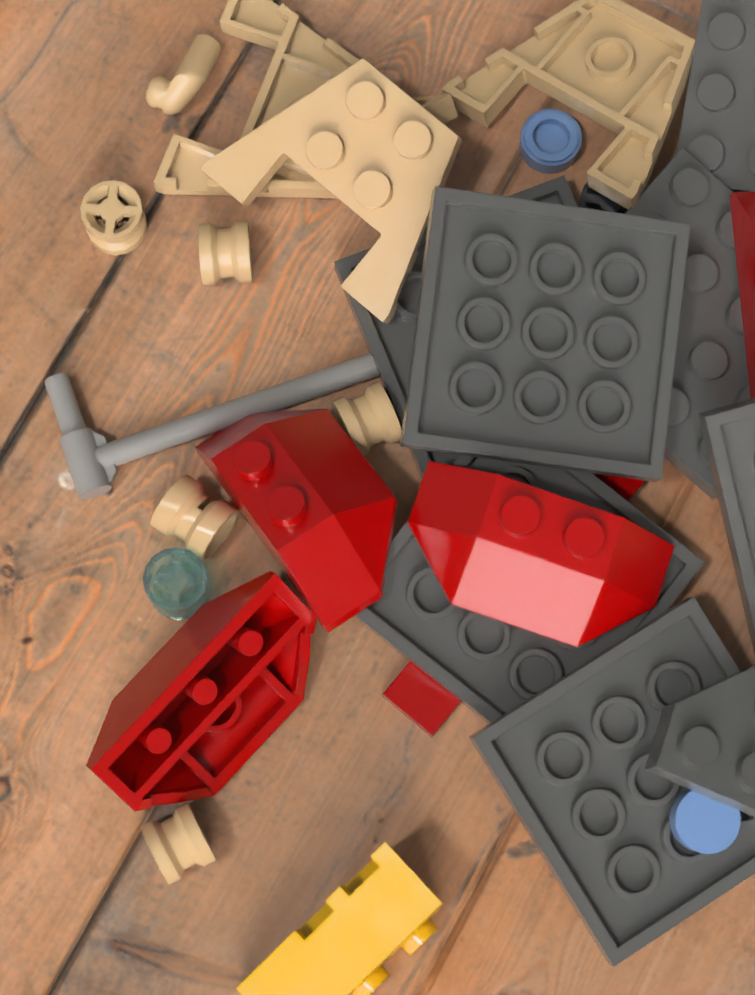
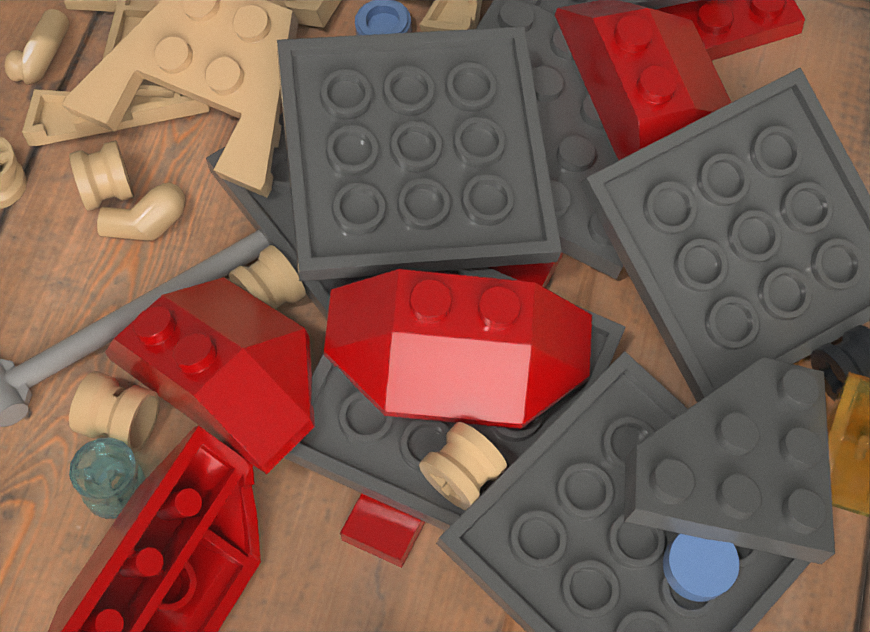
camera: 10 degrees left, 15 degrees down
(263, 310) = (147, 219): none -> tan arm
(511, 672) = (463, 465): none -> tan wheel

